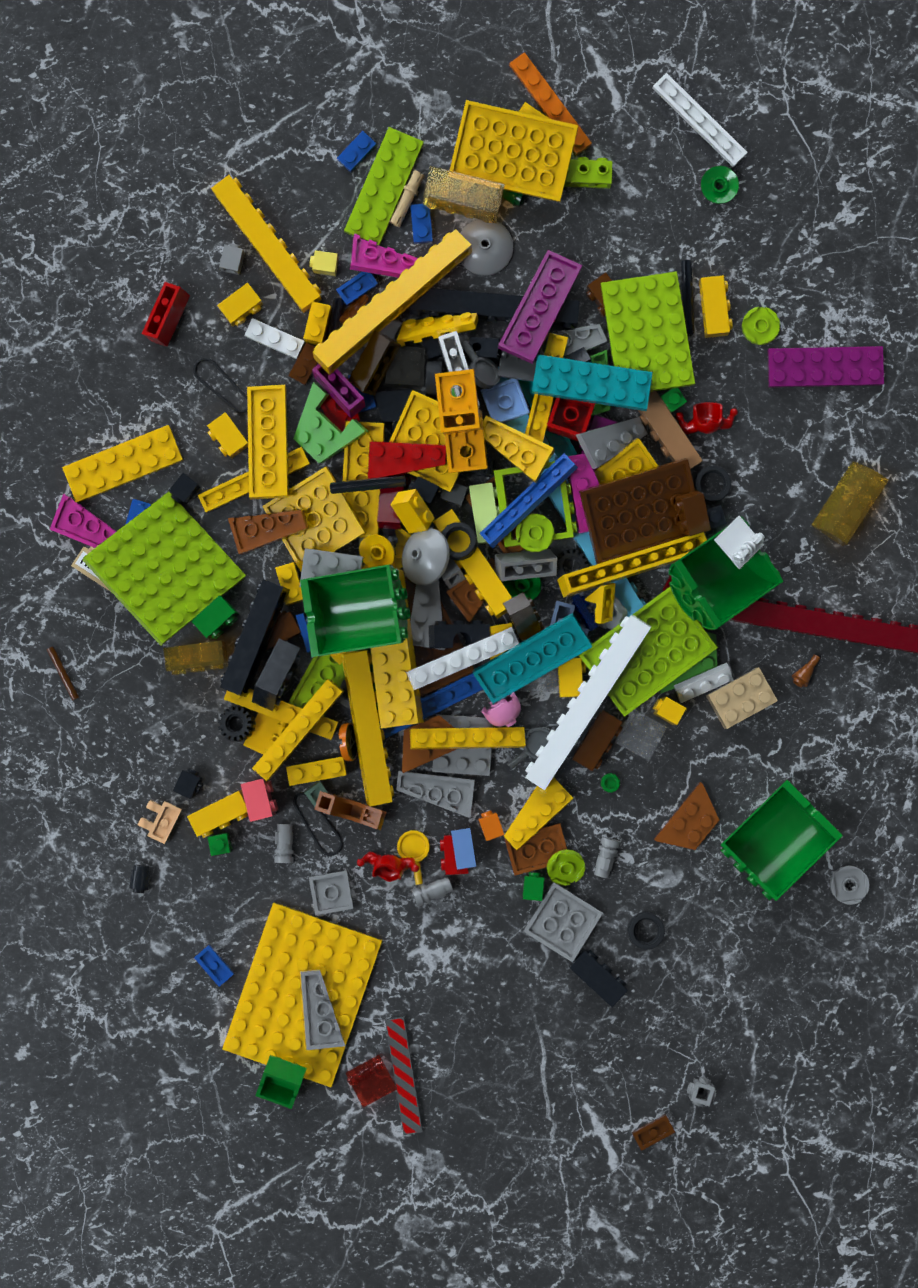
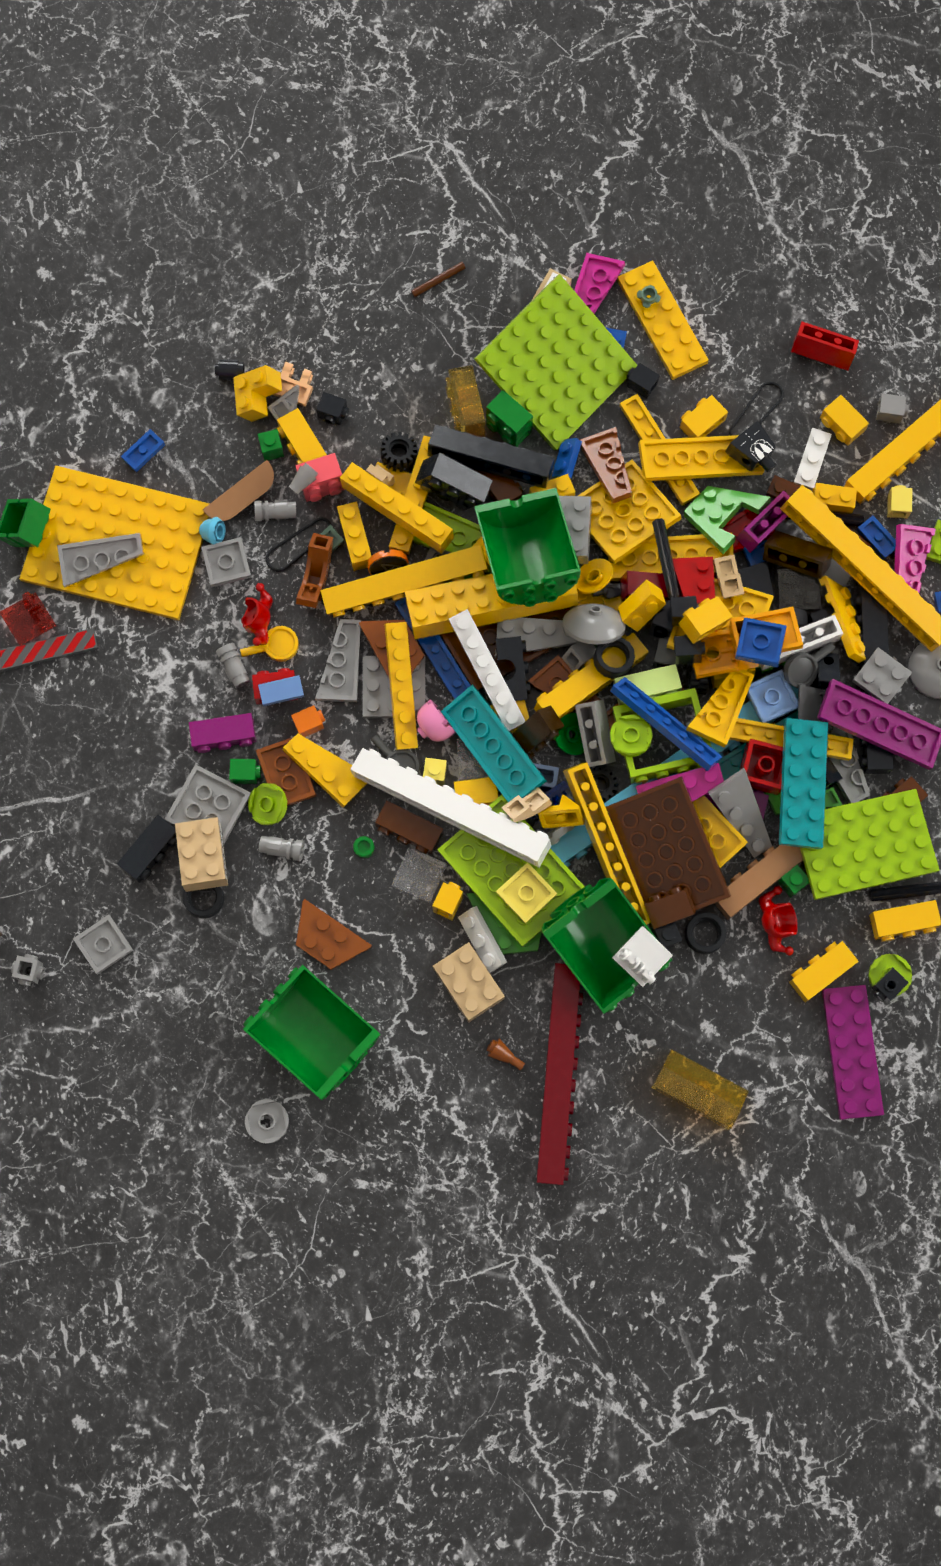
camera: 85 degrees right, 10 degrees down
(95, 472) = (648, 290): none -> sand green plate
(166, 858) = (253, 388): none -> yellow brick
(181, 828) = (285, 403): none -> light grey tile
(256, 567) = (567, 457): none -> blue plate
(263, 742) = (381, 474): none -> tan slope
(265, 392) = (753, 448): none -> black torso
(266, 815) = (303, 478): none -> light grey cone
(266, 874) = (242, 493): none -> medium nougat brick
(300, 903) = (212, 530): none -> medium azure cone
(390, 429) = (728, 576): none -> tan slope
(426, 471) = (684, 649): none -> black arch
(441, 455) = (705, 619): none -> yellow brick
(468, 406) = (760, 642): none -> blue tile
(494, 300) = (882, 676): none -> light grey plate
(495, 905) = (222, 732): none -> magenta brick
(547, 713) = (436, 770): none -> light yellow brick
(596, 632) = (532, 804): none -> tan slope
(611, 930) = (201, 854): none -> tan brick
(672, 640) = (526, 893): none -> light yellow plate
(681, 1023) = (103, 944): none -> light grey plate
(754, 384) = (822, 970): none -> yellow brick
(773, 328) = (889, 985): none -> black brick

